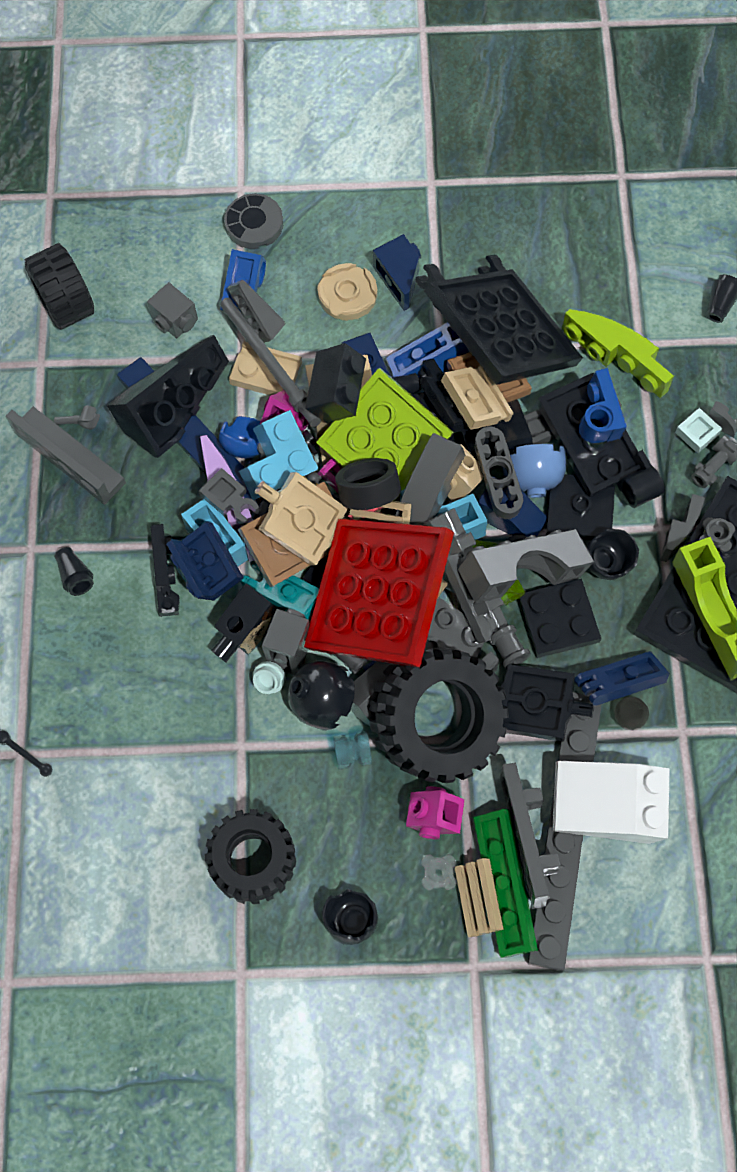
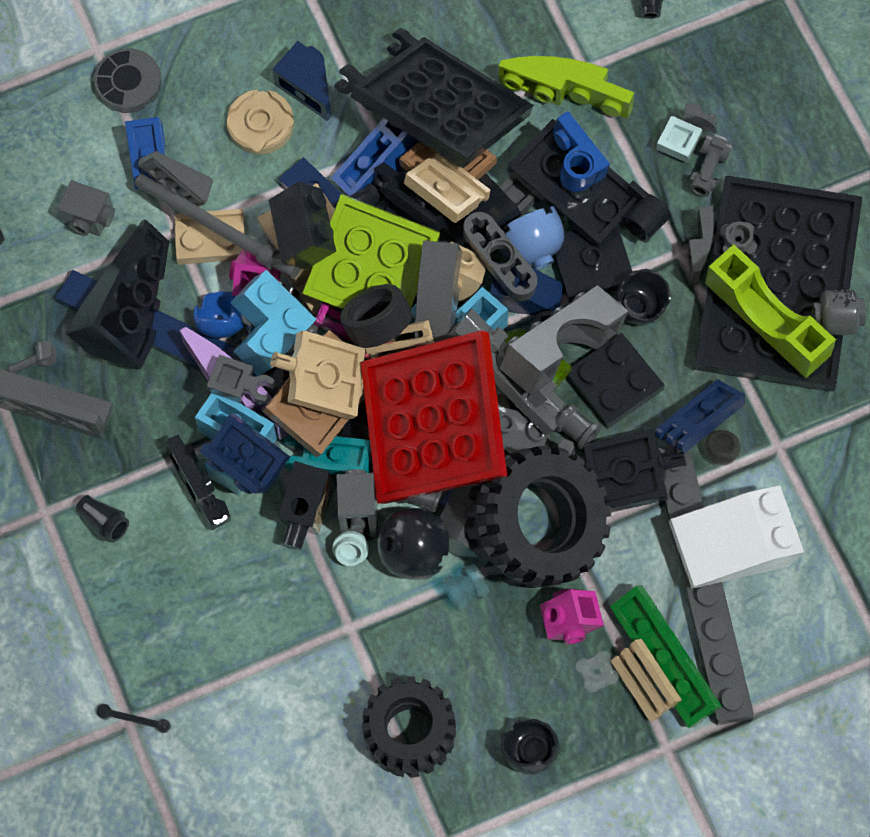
camera: 20 degrees left, 0 degrees up
(533, 865) = (686, 627): dark grey hinge -> none

